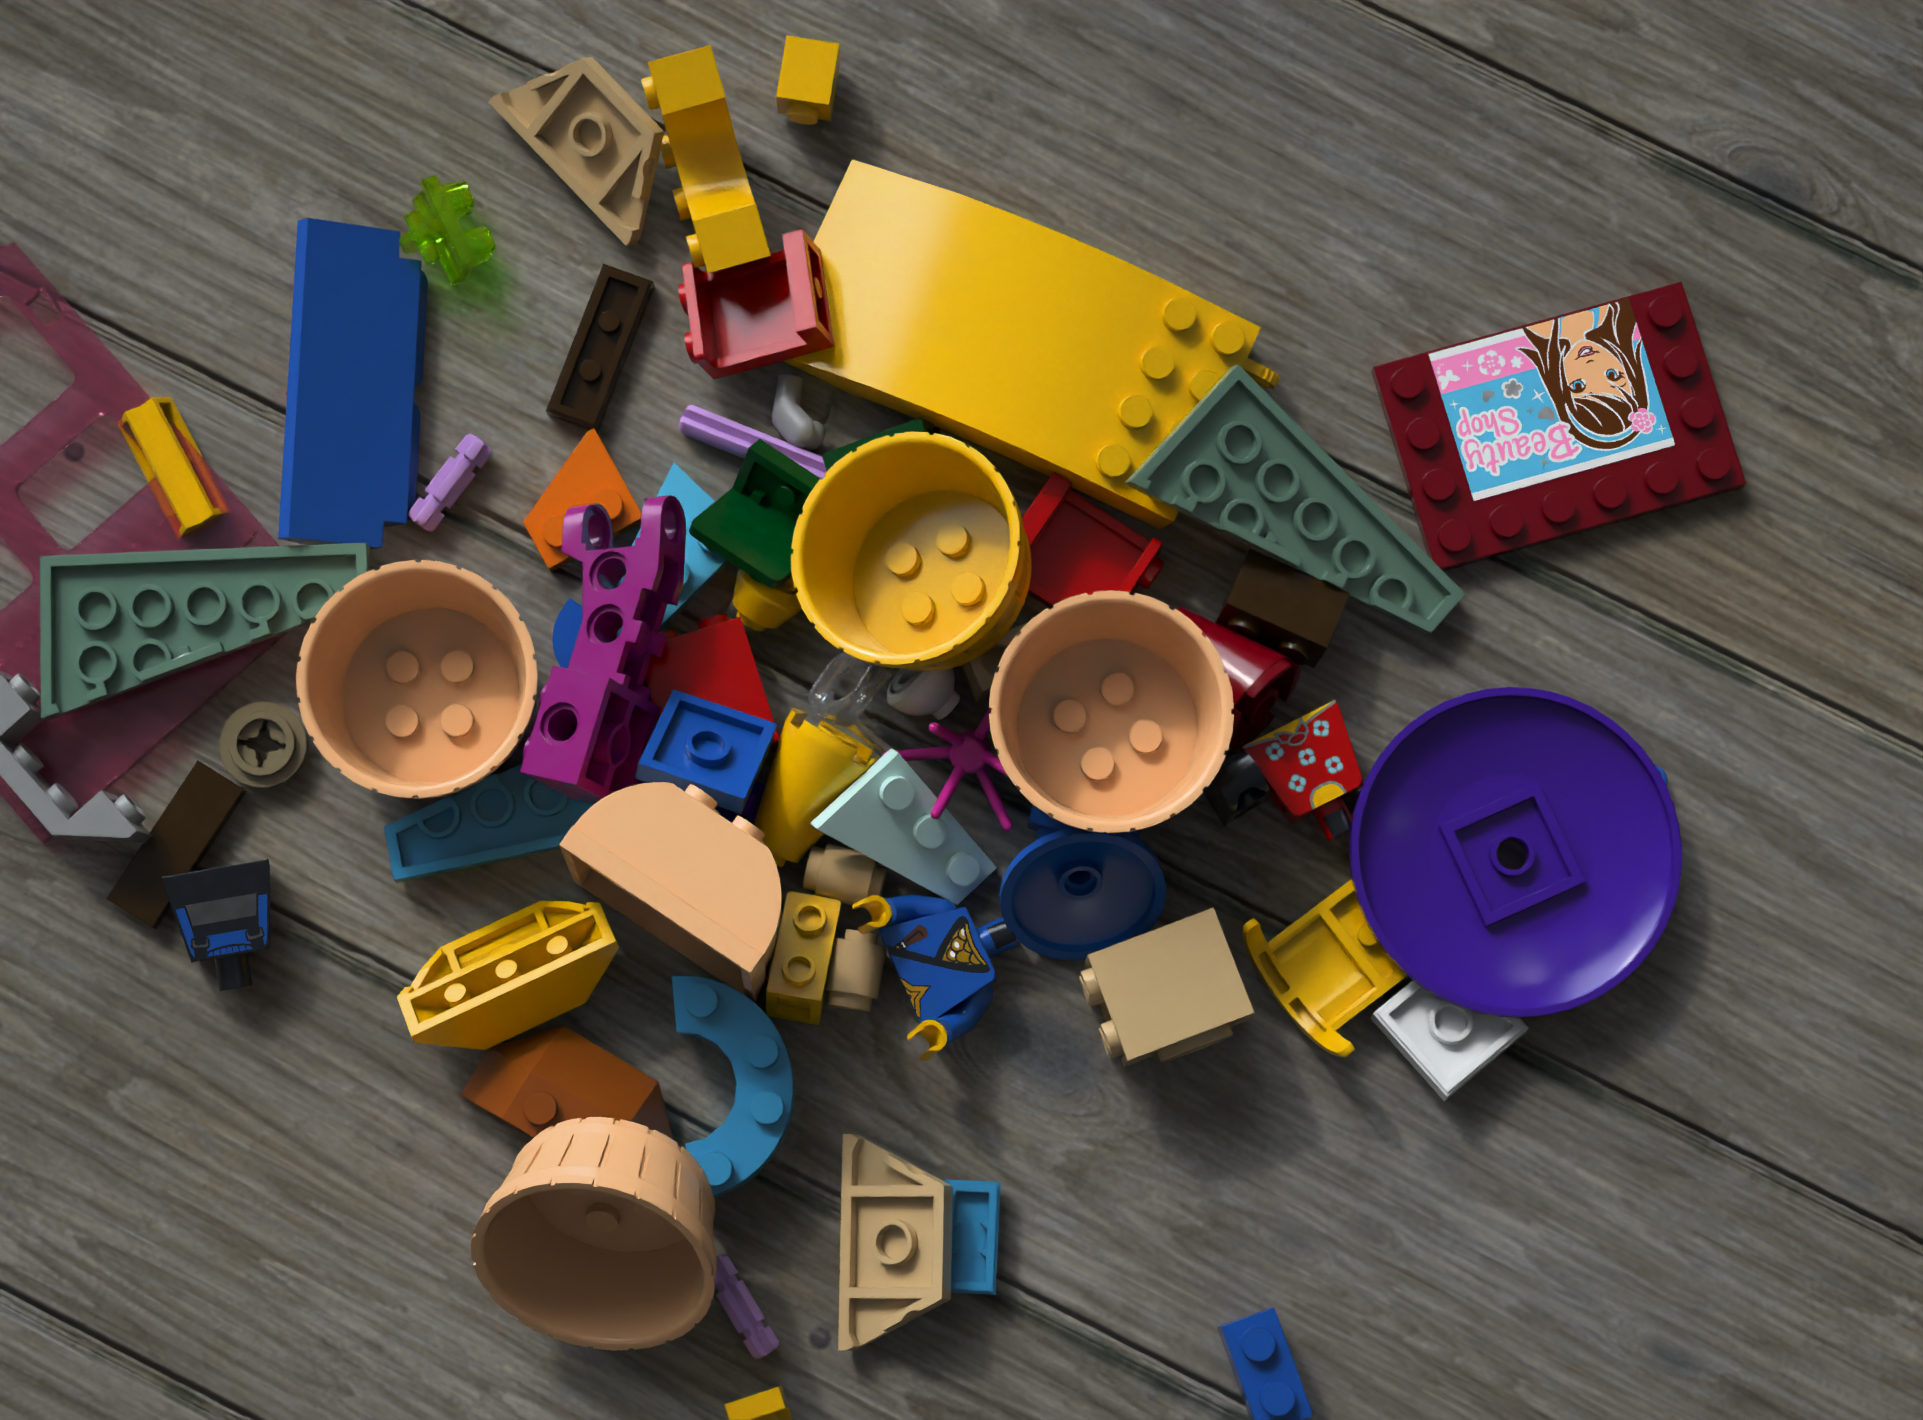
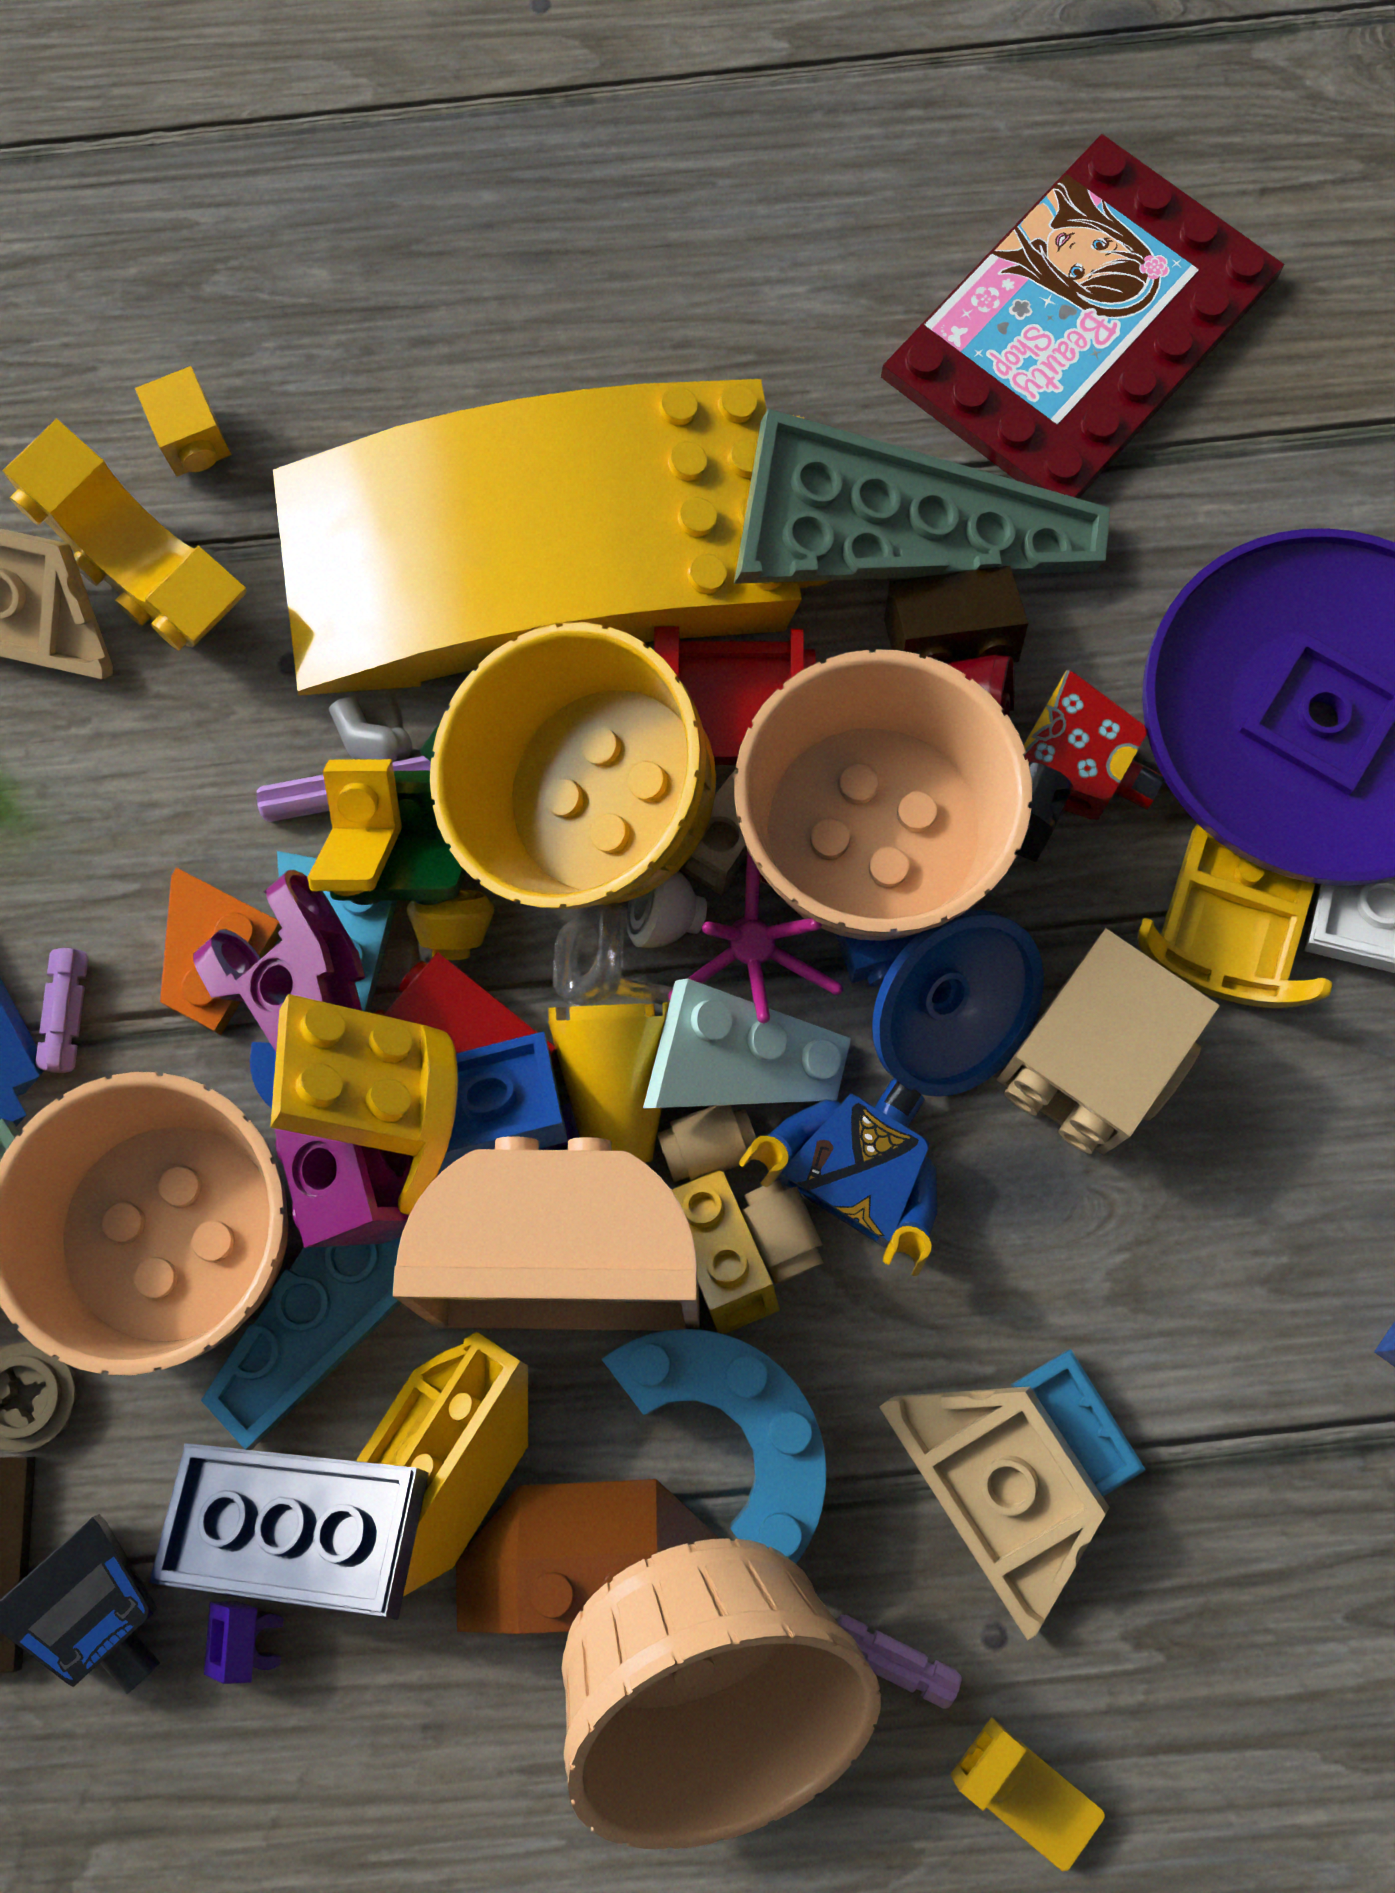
camera: 30 degrees left, 5 degrees down
(308, 1002) = (231, 1642): none -> dark purple tile
(393, 951) = (291, 1529): none -> tile
(600, 348) = (136, 791): dark brown tile -> none
(630, 689) = (367, 1084): none -> yellow piece
(741, 494) = (363, 825): none -> yellow bracket
(758, 309) = (268, 655): red panel -> none

